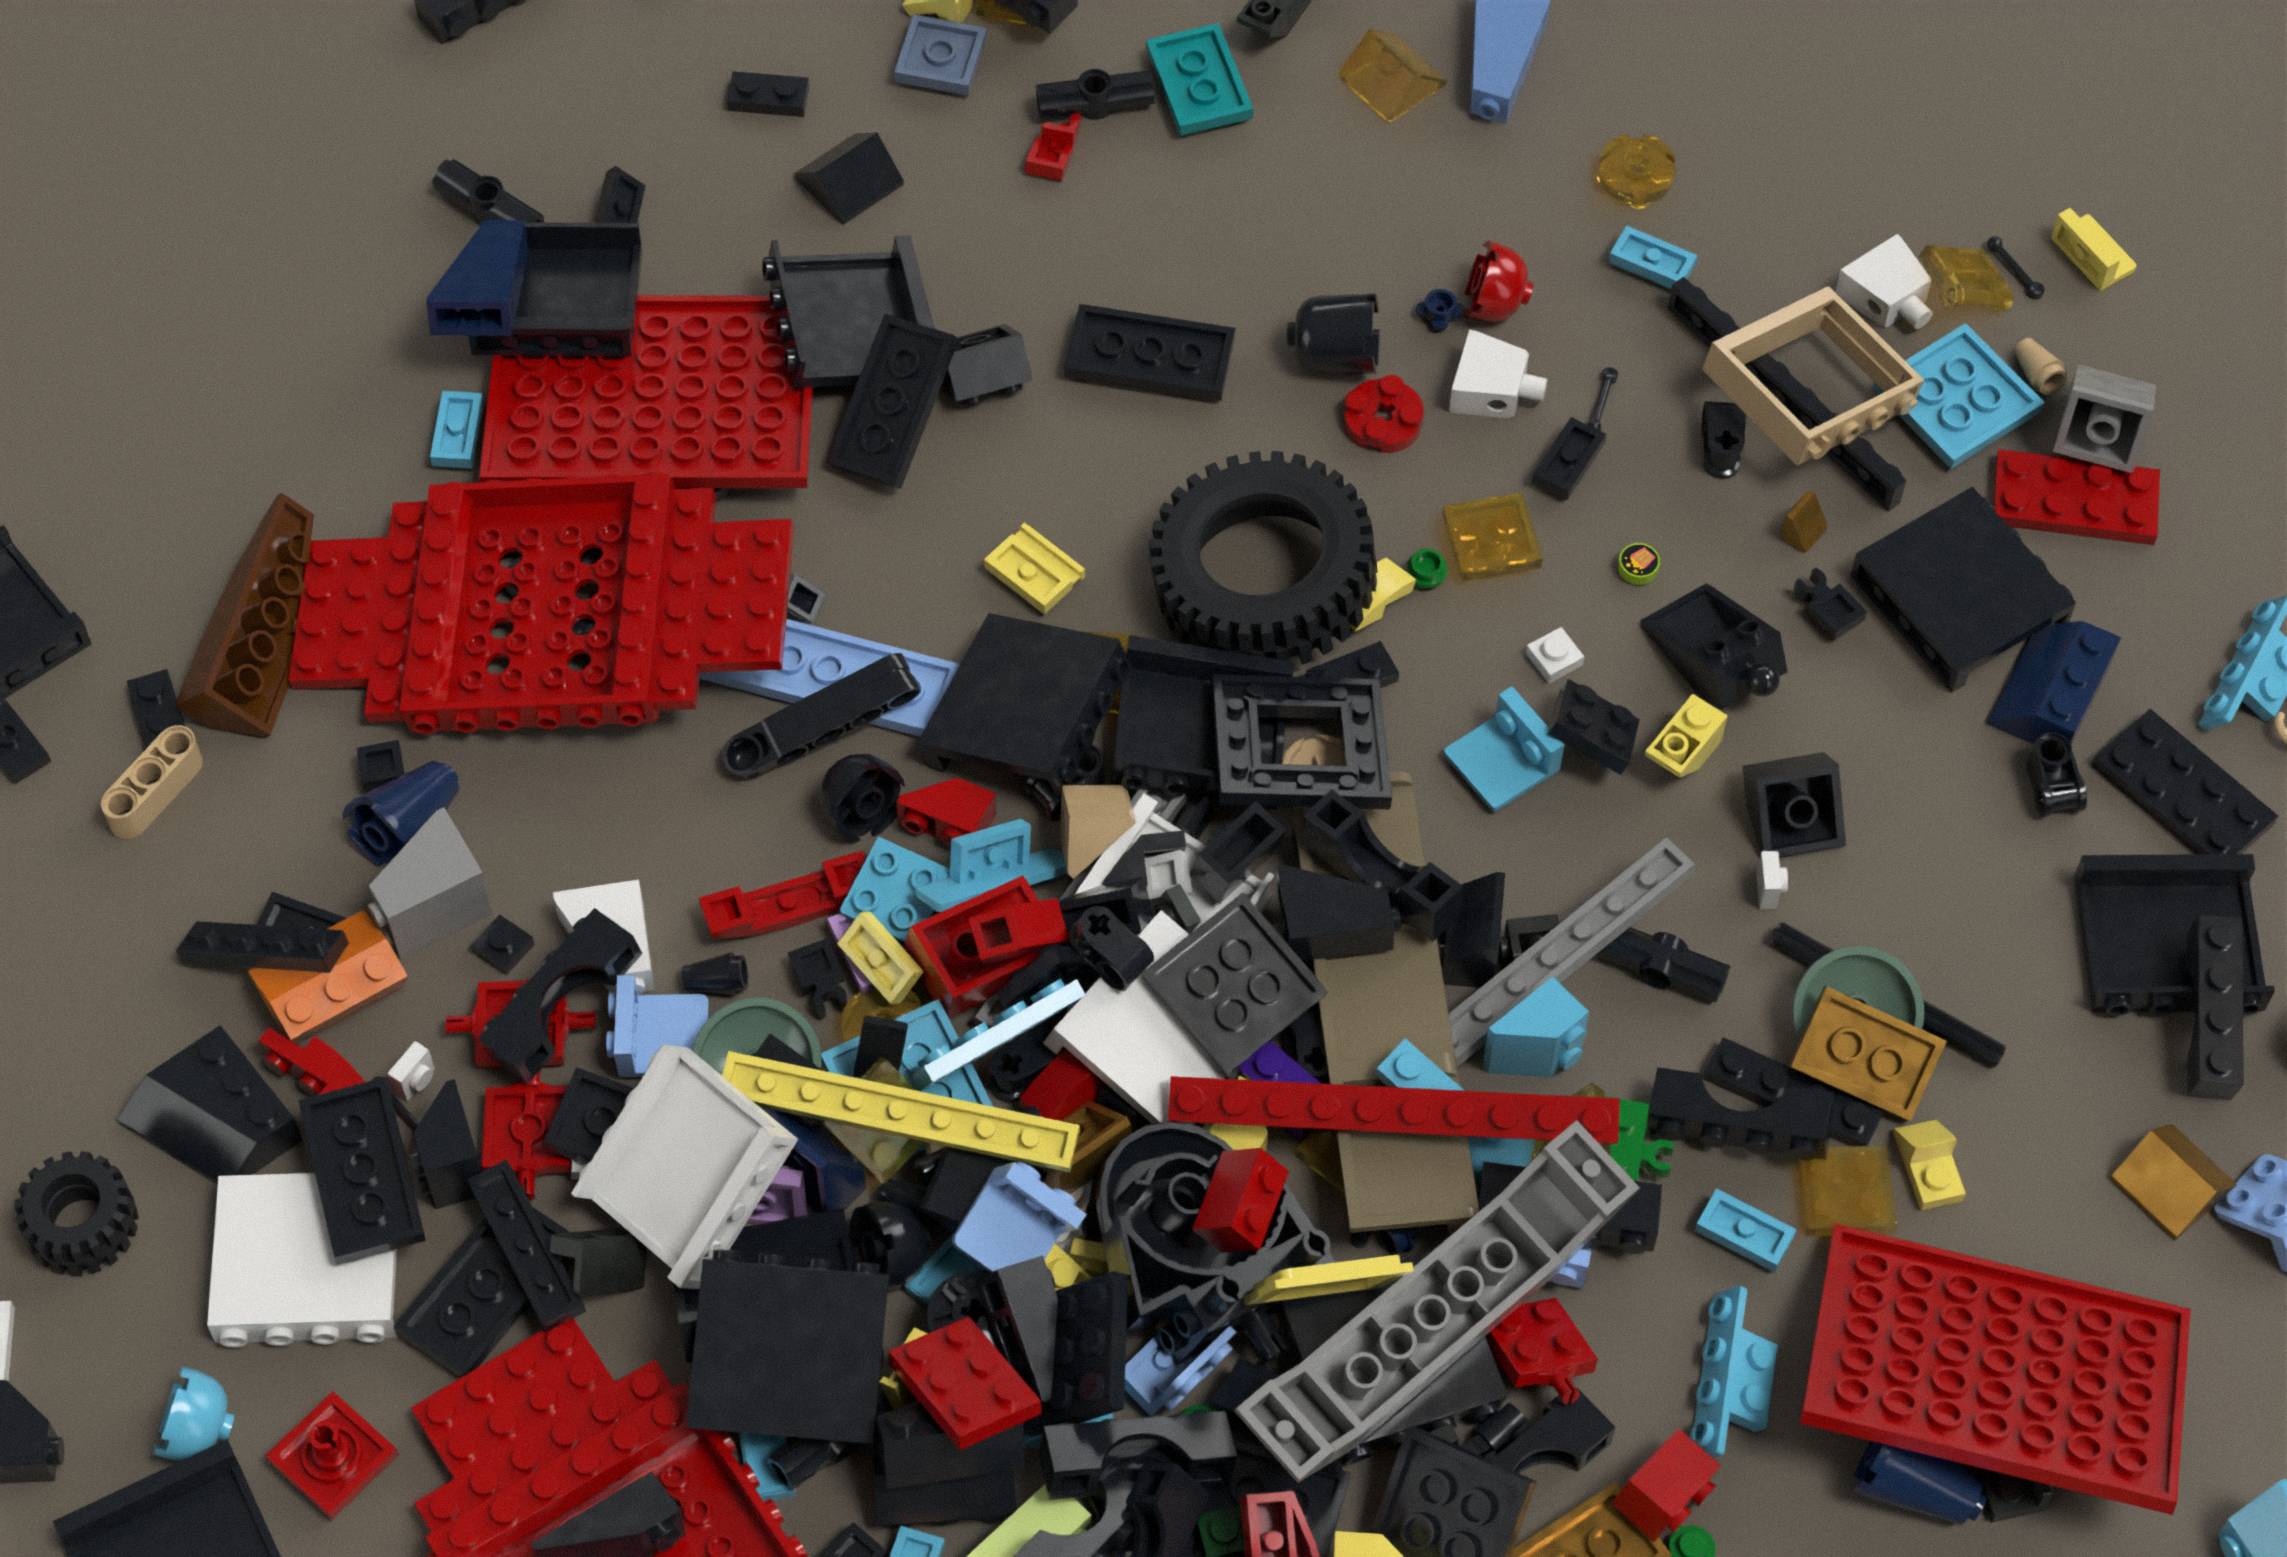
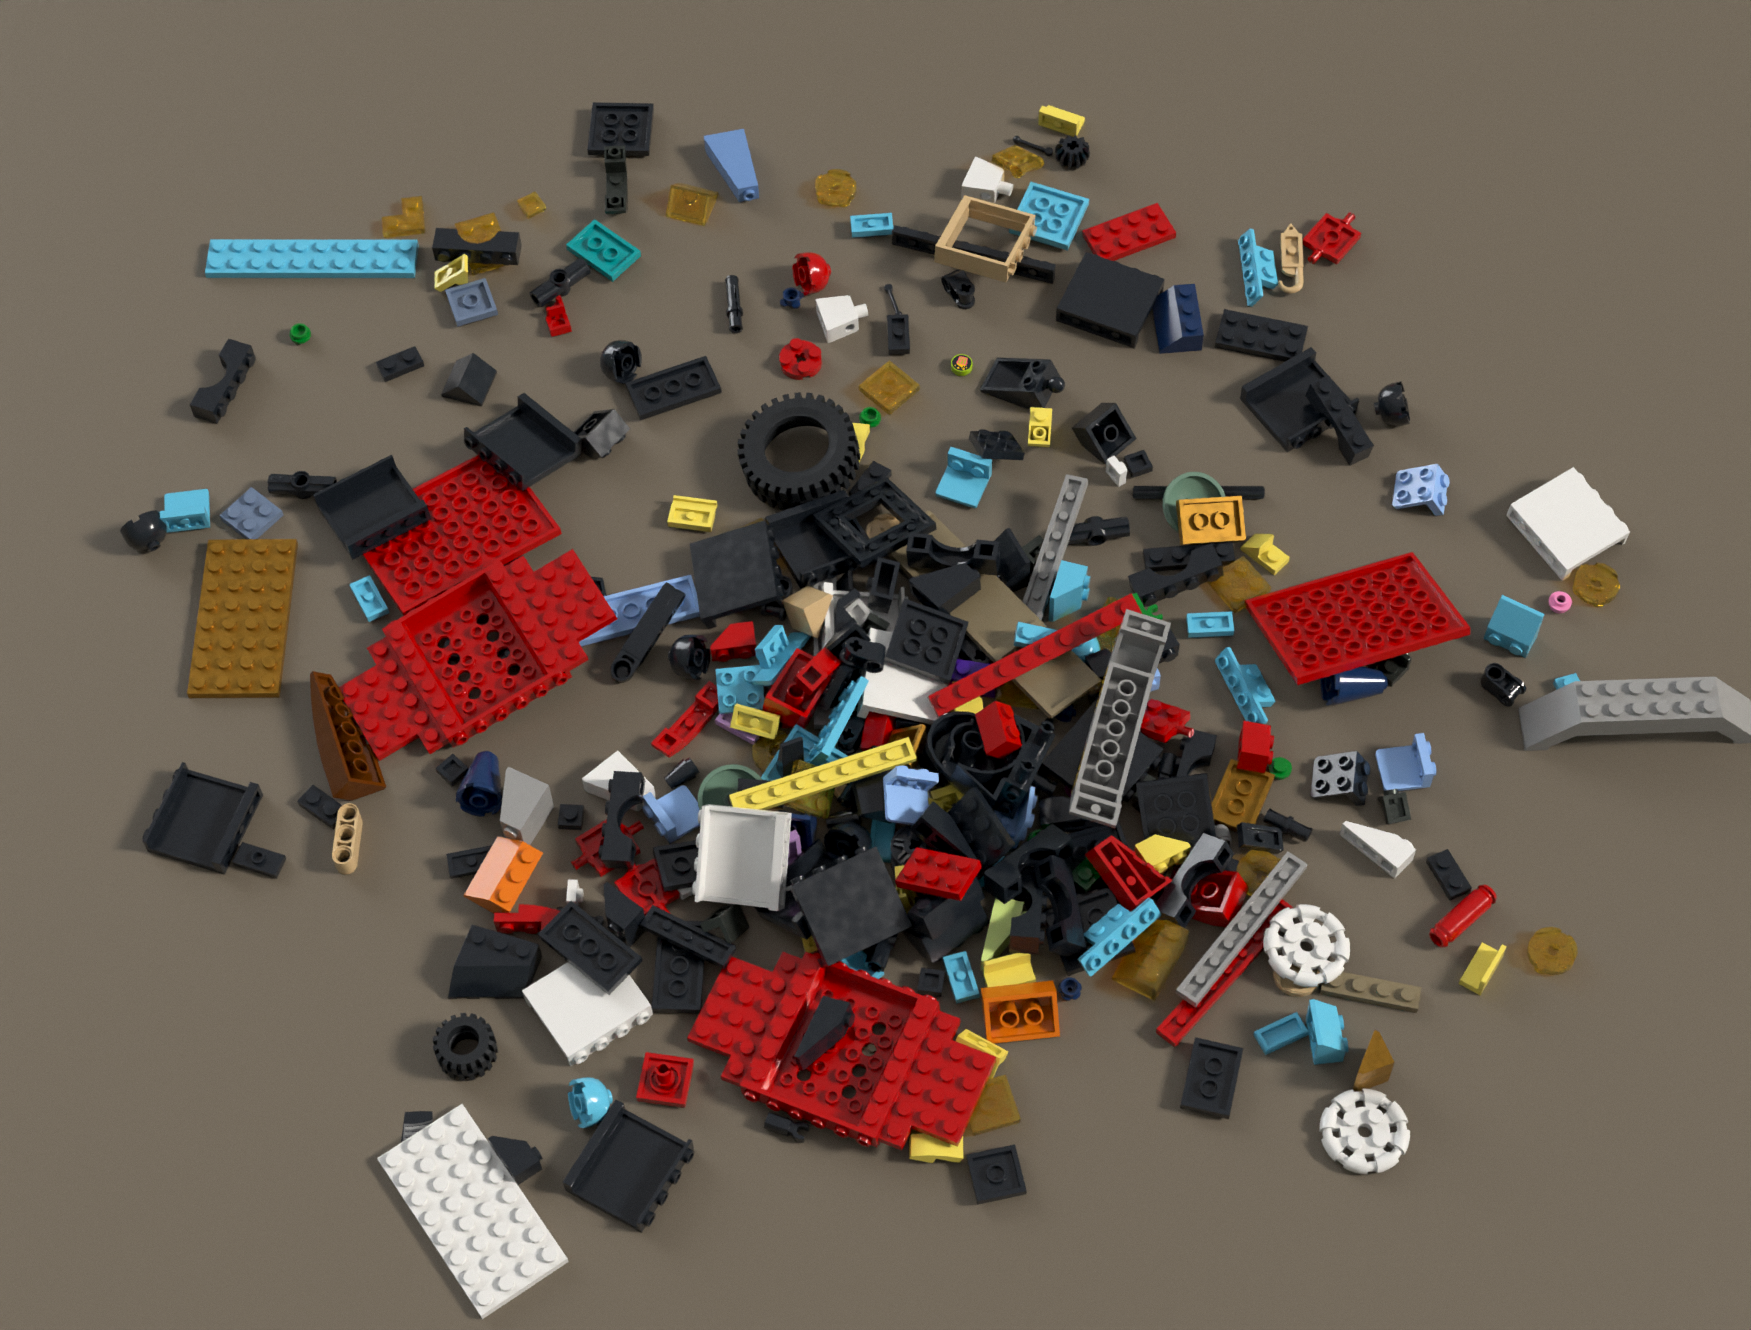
camera: 30 degrees left, 0 degrees up
(213, 148) = (146, 532): none -> black cylinder
(259, 358) = (243, 619): none -> pearl gold plate
(262, 946) = (462, 879): black plate -> none
(296, 149) = (186, 510): none -> medium azure bracket
(386, 208) = (251, 515): none -> sand blue plate
(482, 284) = (341, 520): dark blue slope -> none
(620, 198) = (367, 450): black plate -> none
(819, 972) = (728, 745): black plate -> none
(892, 401) = (574, 472): black plate -> none
(1095, 266) = (620, 361): none -> black cylinder
(1328, 1279) = (1064, 738): light yellow piece -> none
(1337, 333) = (756, 332): black cylinder -> none
(1359, 240) = (734, 310): none -> black pin
(1555, 655) = (953, 425): white plate -> none
(1804, 523) = (1022, 308): pearl gold slope -> none
(1816, 888) = (1138, 463): none -> black plate
(1832, 608) = (1059, 339): black plate -> none
(2040, 367) = (1076, 184): tan cone -> none
(2055, 783) = (1207, 361): black piece -> none
(2072, 310) = (1072, 151): none -> black gear
(2105, 418) = (1121, 191): light grey slope -> none
(2172, 1180) = (1368, 504): pearl gold slope -> none

